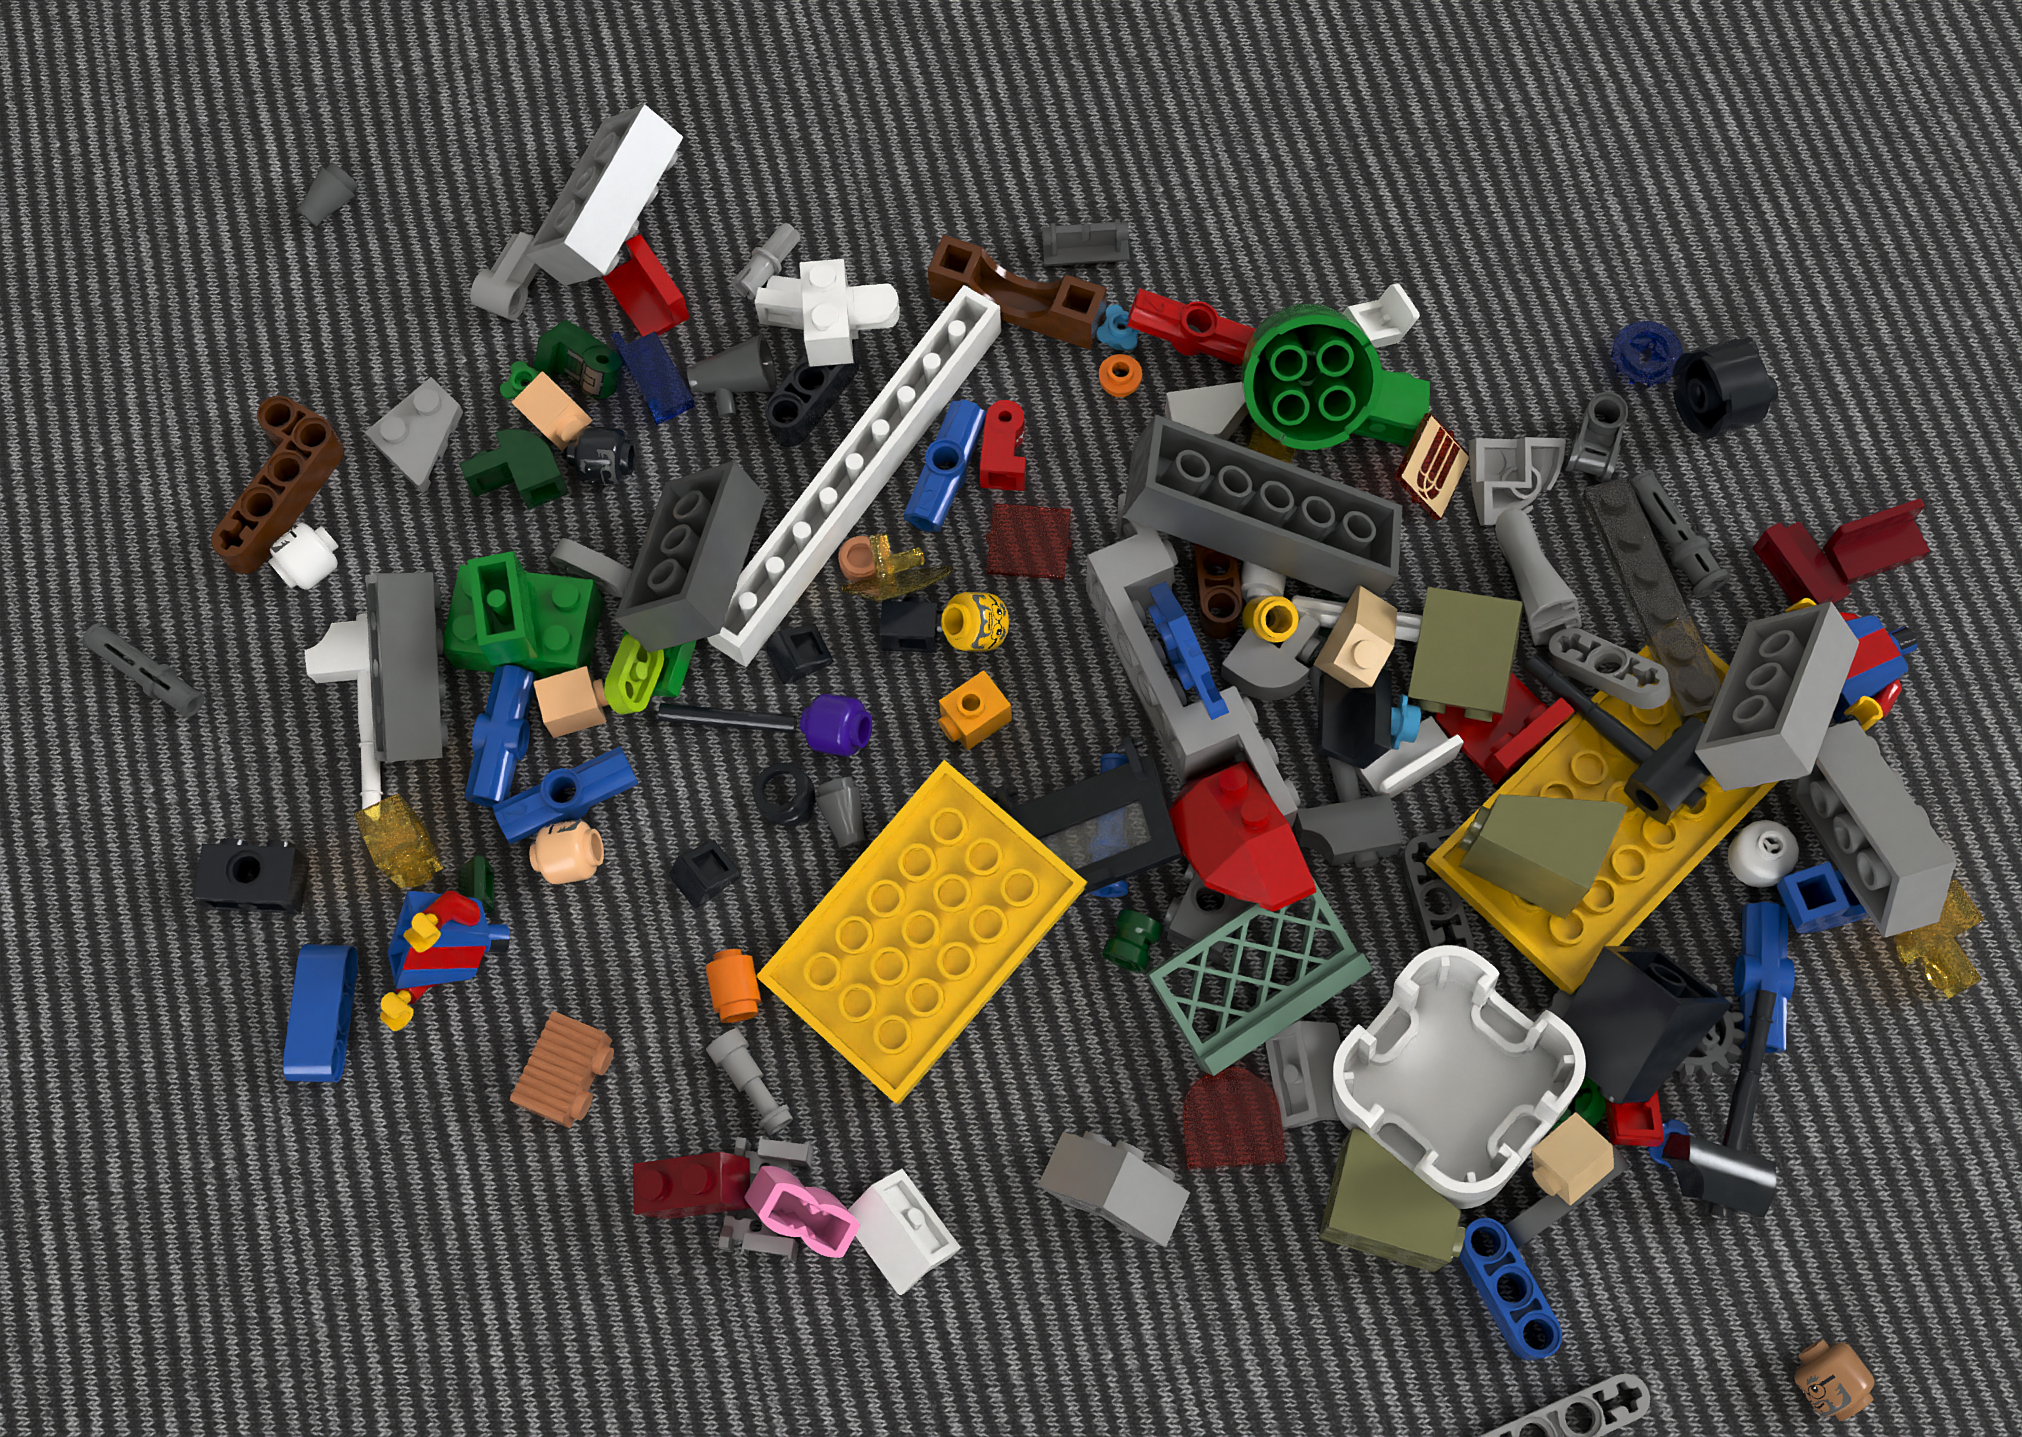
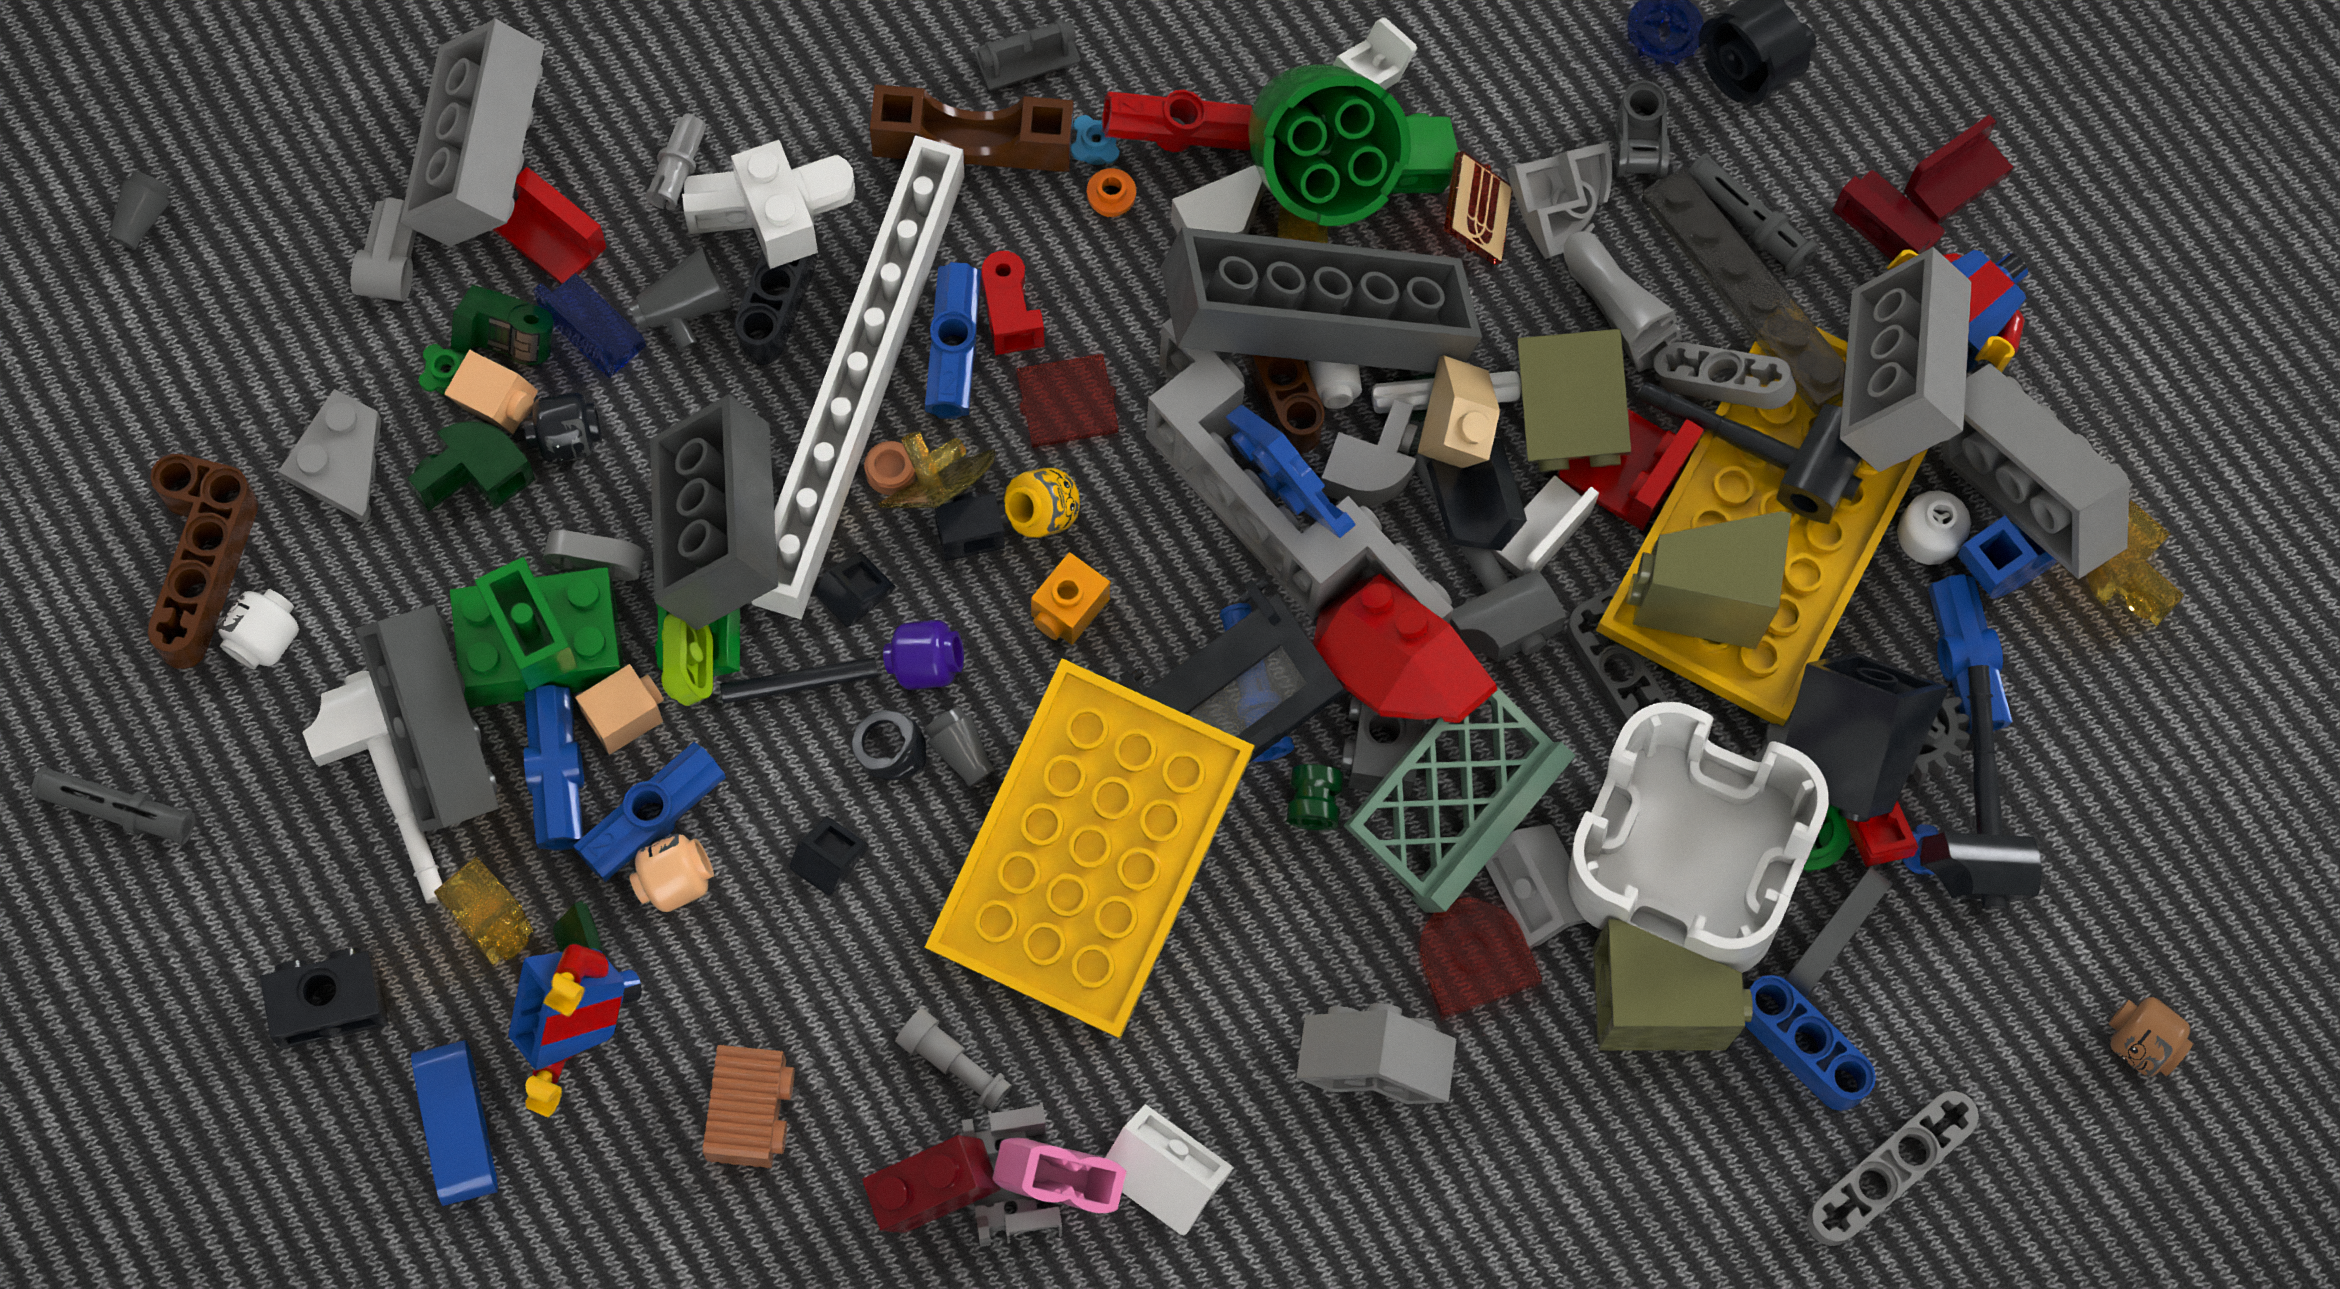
camera: 25 degrees left, 0 degrees up
(733, 986) = (903, 964): orange brick -> none
(1282, 622) = (1358, 415): yellow brick -> none
(1404, 722) = (1532, 488): dark azure plate -> none
(1572, 1159) = (1834, 890): tan brick -> none

